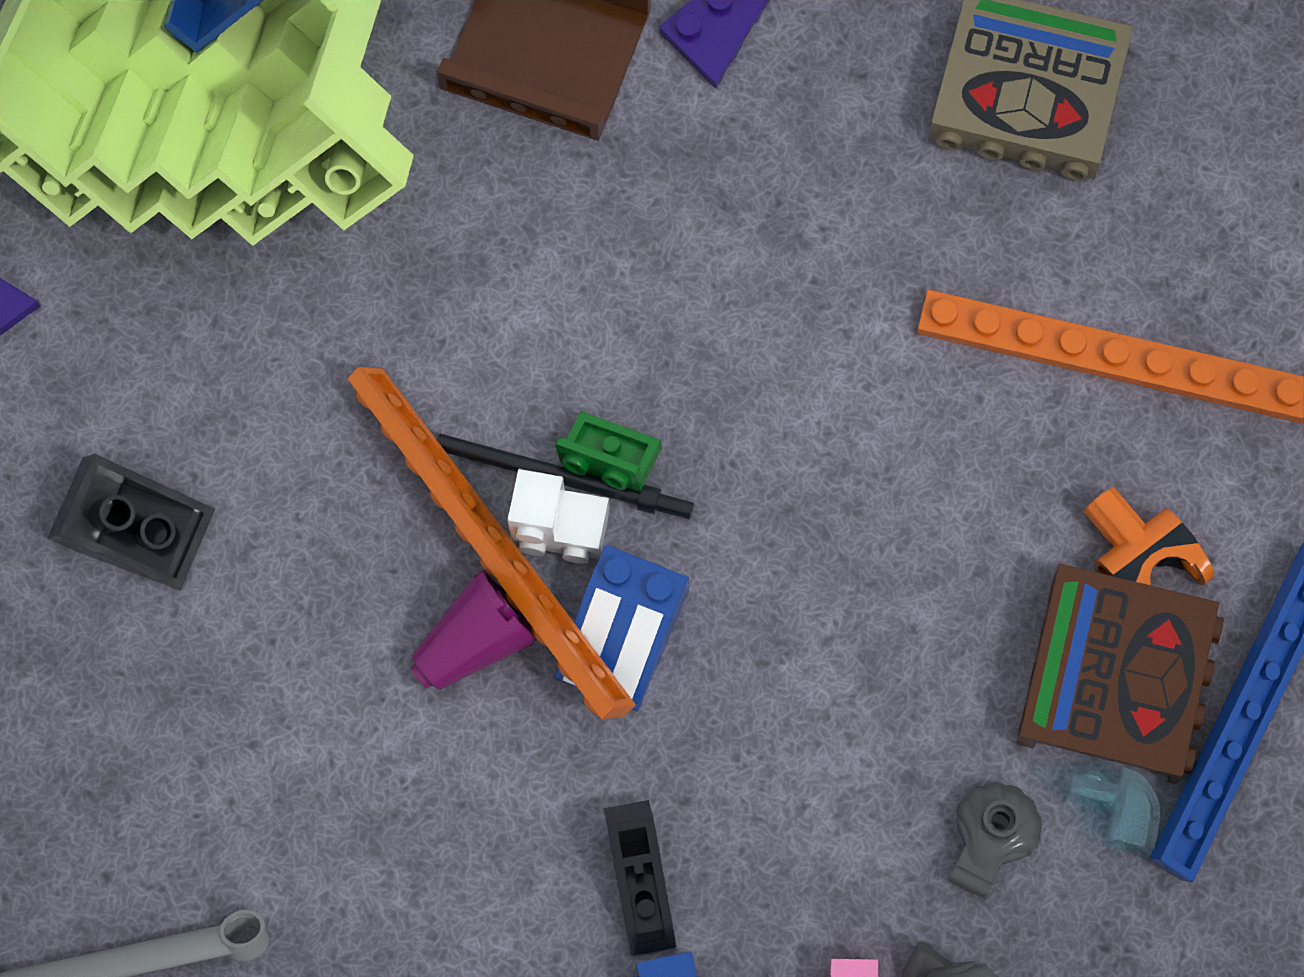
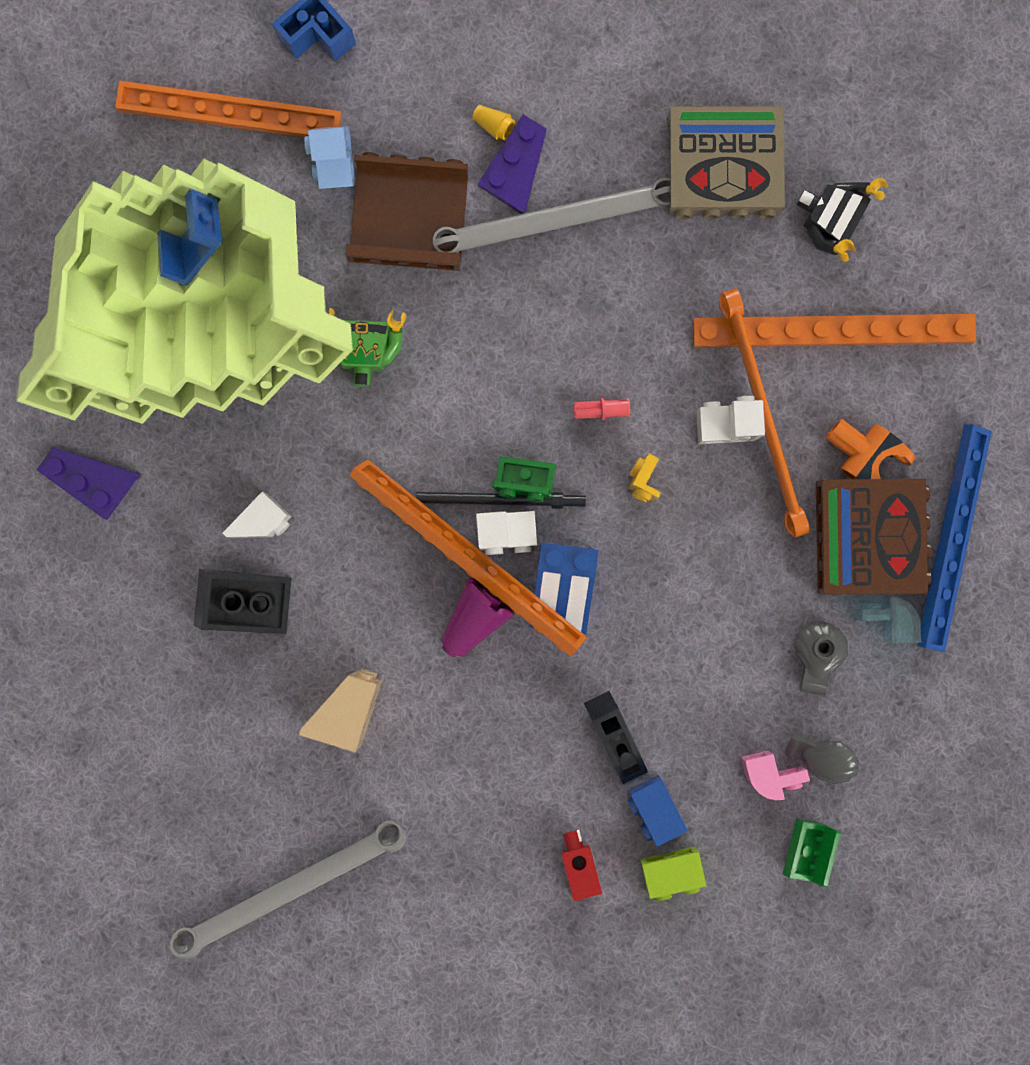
camera: 15 degrees left, 15 degrees up
(193, 411) = (260, 519): none -> white slope
(236, 716) = (346, 713): none -> tan slope
(434, 209) = (373, 346): none -> torso
(753, 383) = (601, 409): none -> coral axle
(758, 99) = (554, 217): none -> light grey piece
(788, 483) = (641, 473): none -> yellow bracket
(939, 450) = (733, 423): none -> white brick
(1006, 609) = (734, 311): none -> orange piece
(1180, 193) = (837, 214): none -> torso

